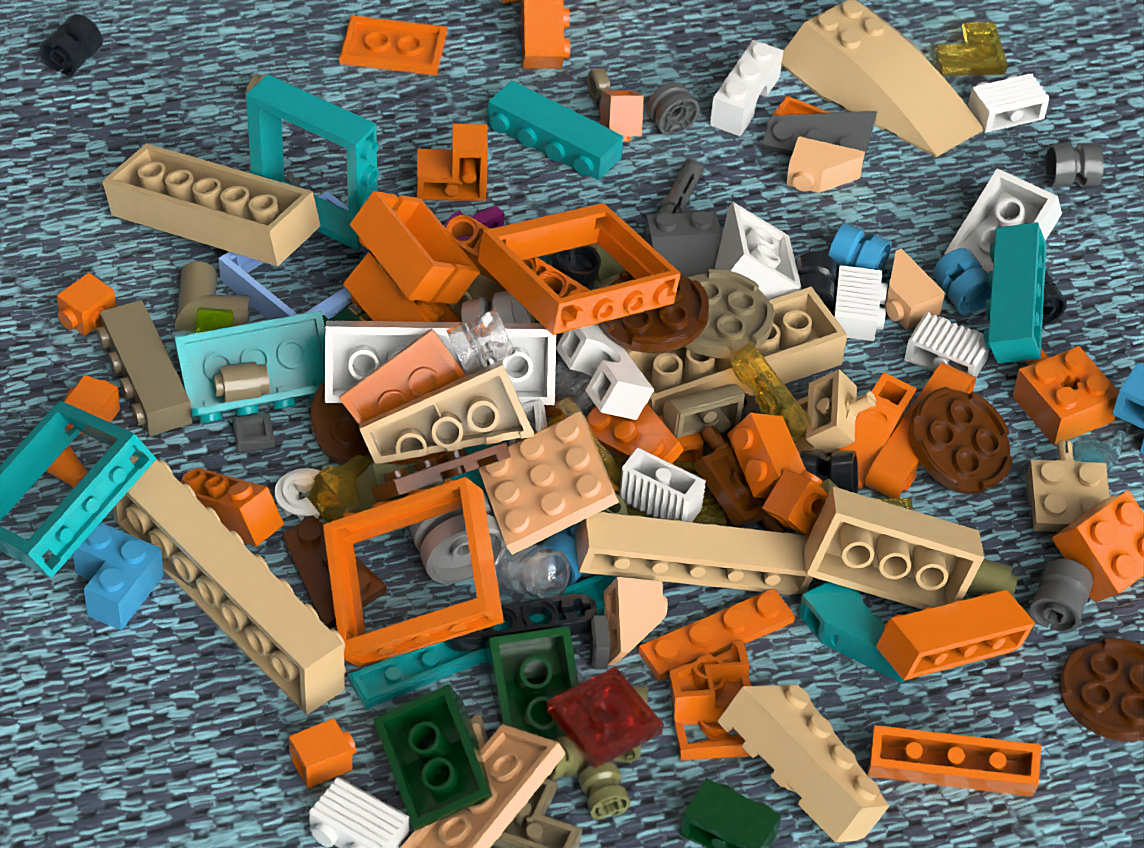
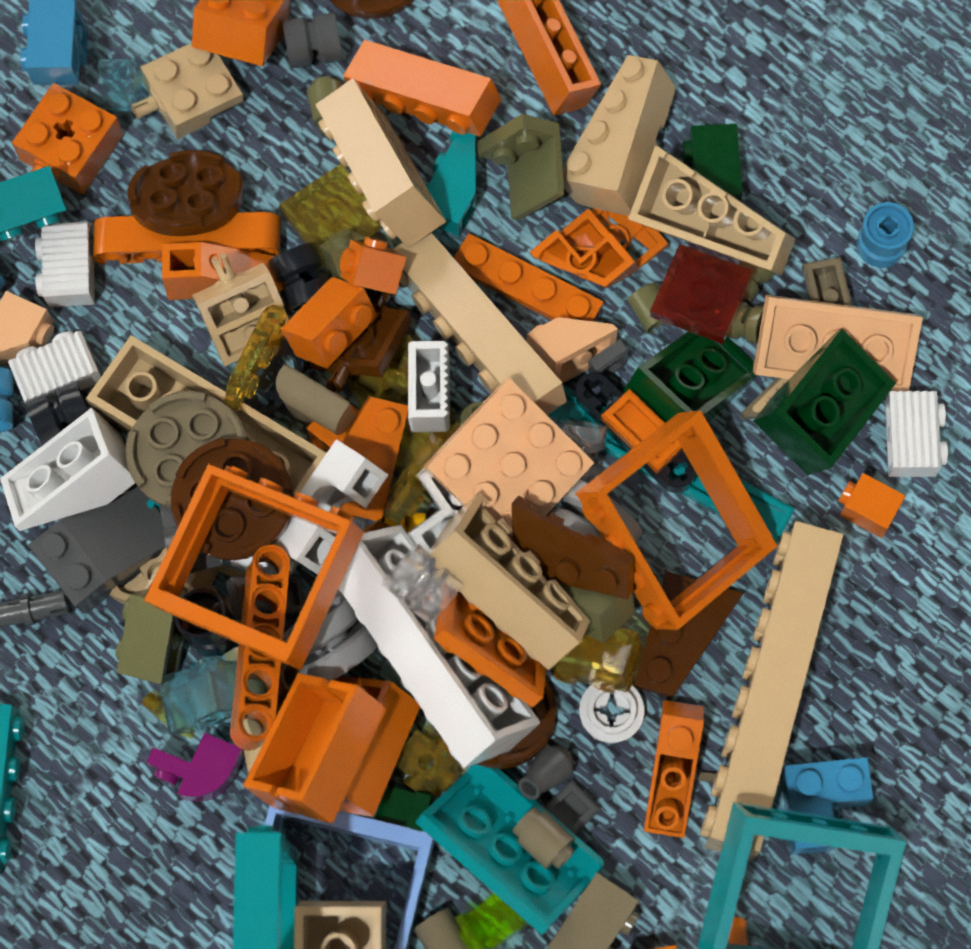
camera: 115 degrees left, 25 degrees up
(292, 418) = (548, 769): none -> dark grey cone
(458, 171) = (110, 839): orange brick -> none
(522, 614) = (636, 421): none -> orange tile
(672, 754) = (700, 212): none -> tan wedge
(852, 671) = (533, 160): none -> olive bracket

